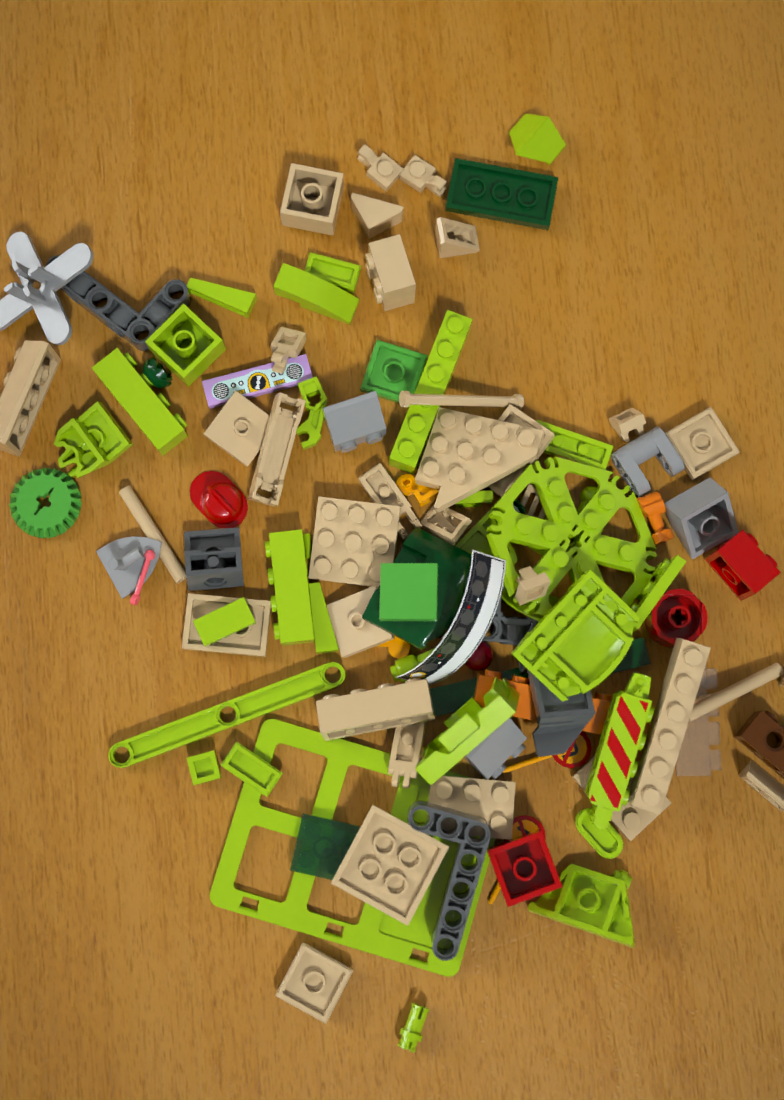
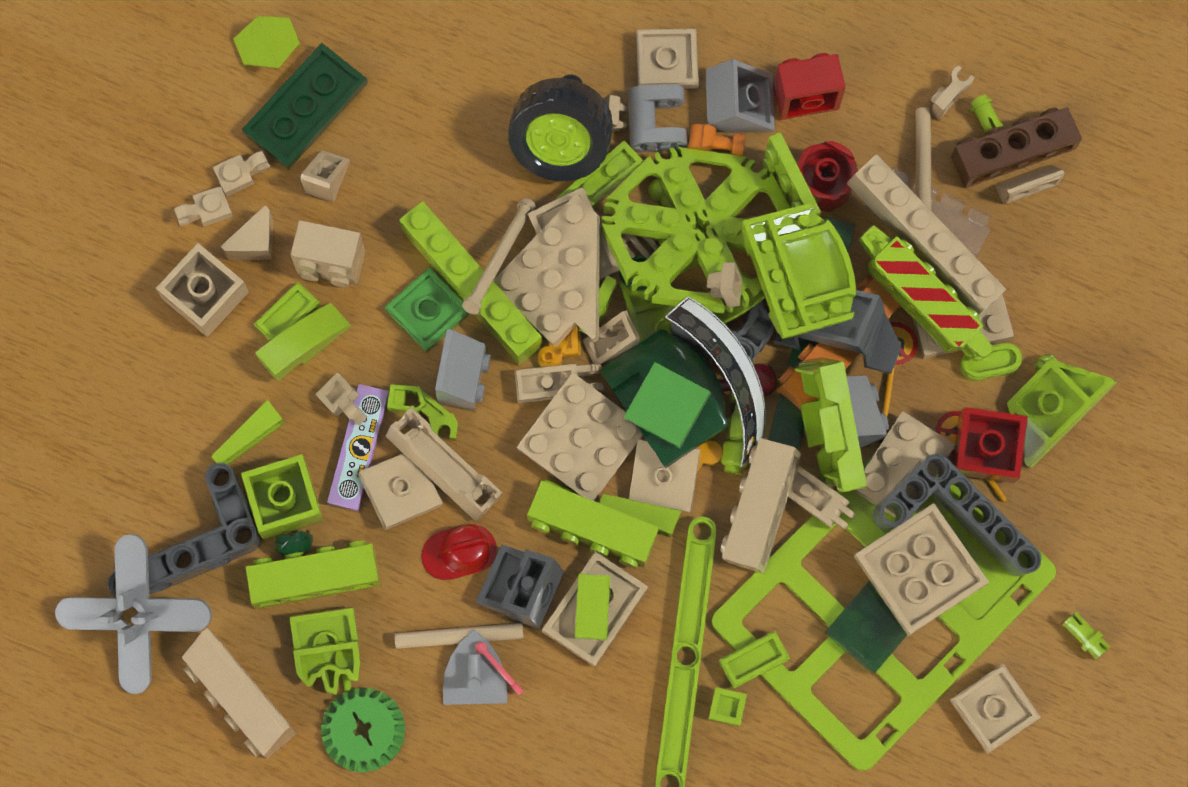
camera: 60 degrees left, 5 degrees down
(590, 389) = (560, 129): none -> black wheel

